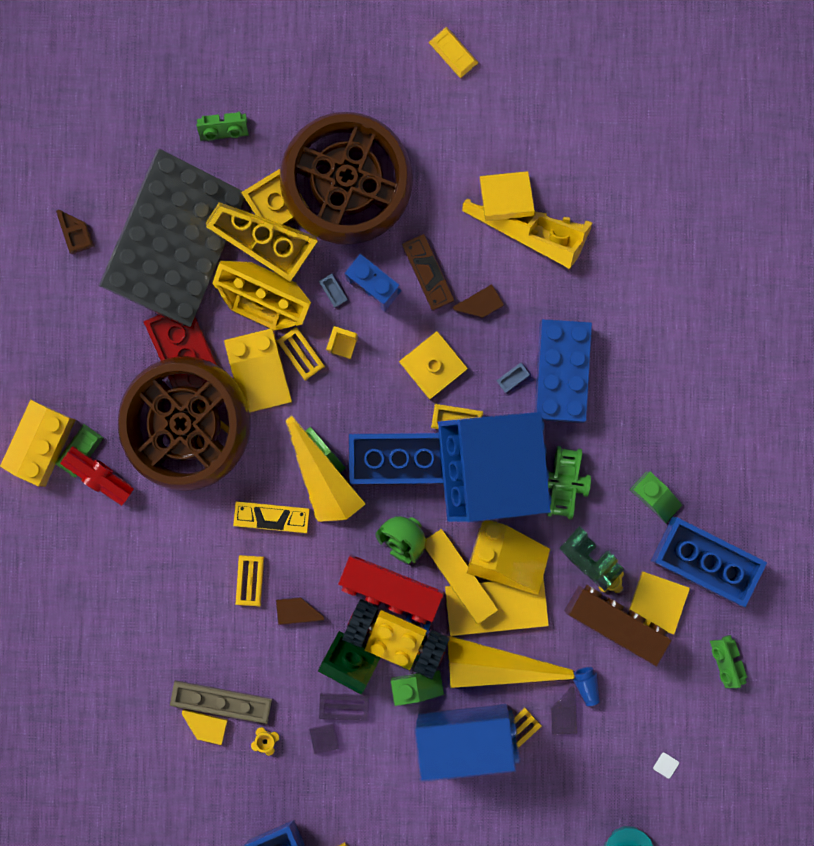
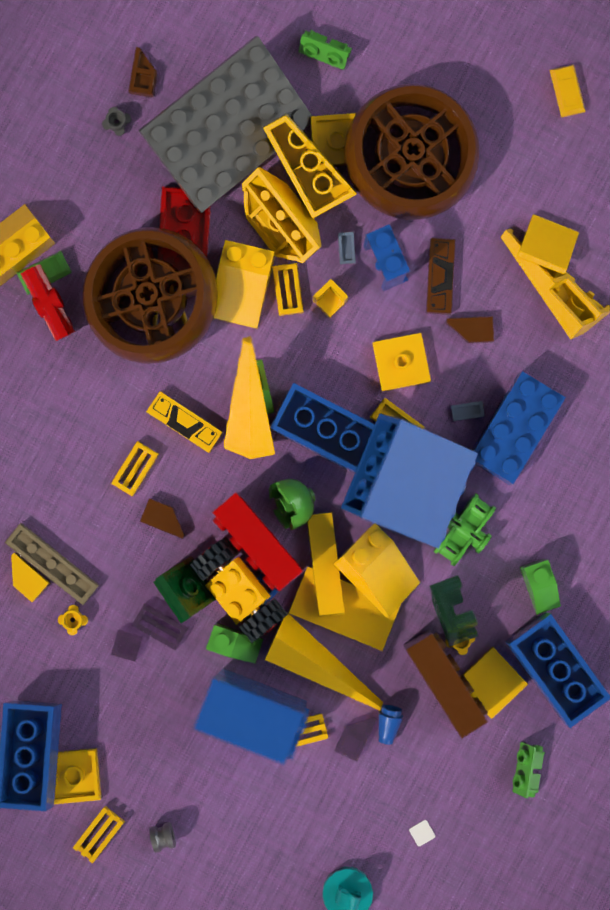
camera: 25 degrees right, 0 degrees up
(68, 279) = (111, 116): none -> dark grey plate

